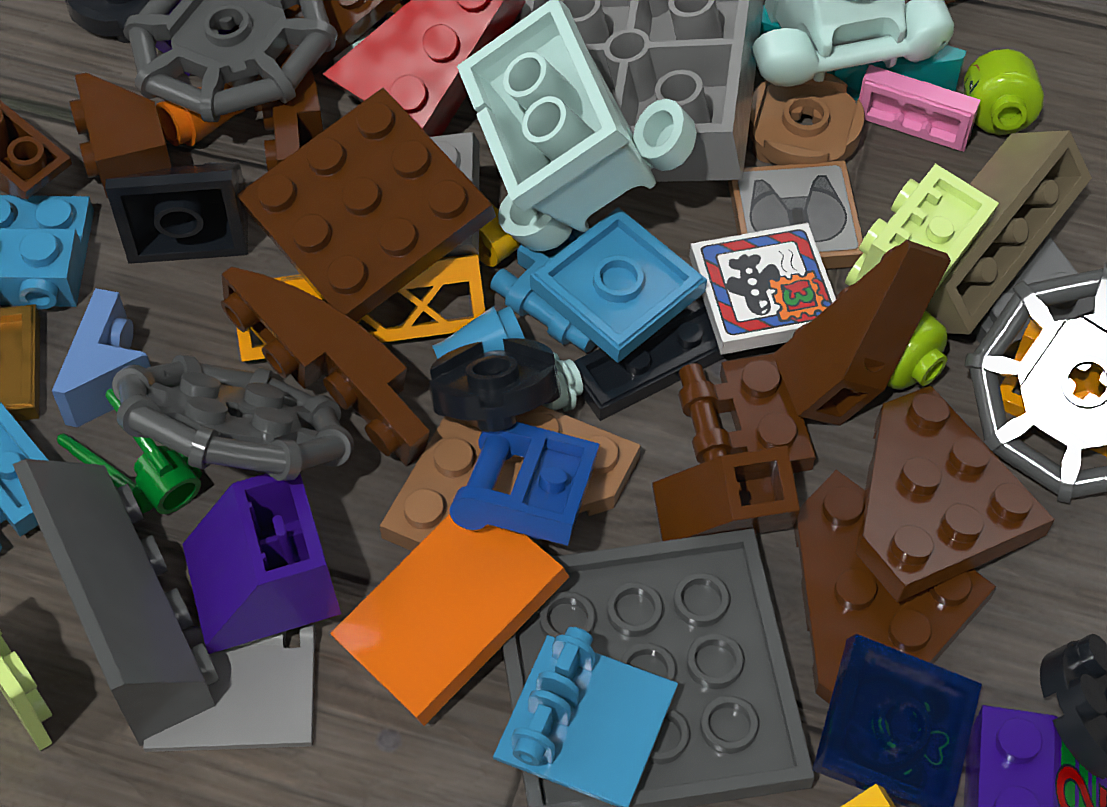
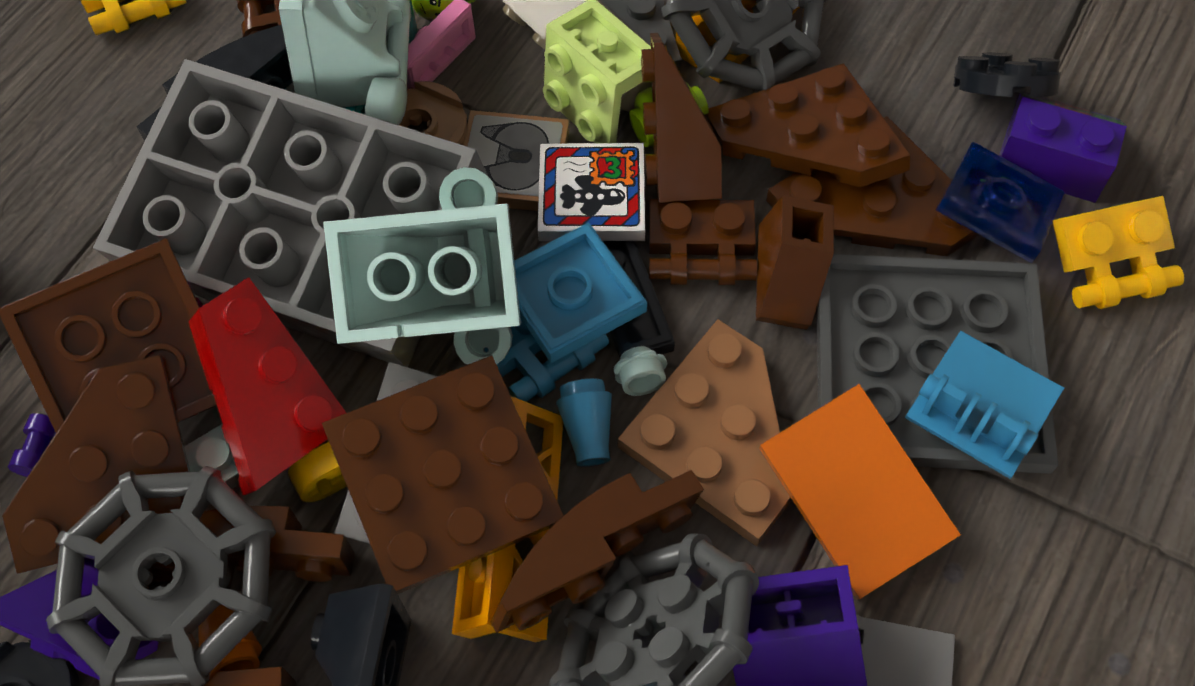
camera: 75 degrees left, 5 degrees up
(494, 383) = (681, 420): black plate -> none
(546, 489) = (772, 379): blue plate -> none

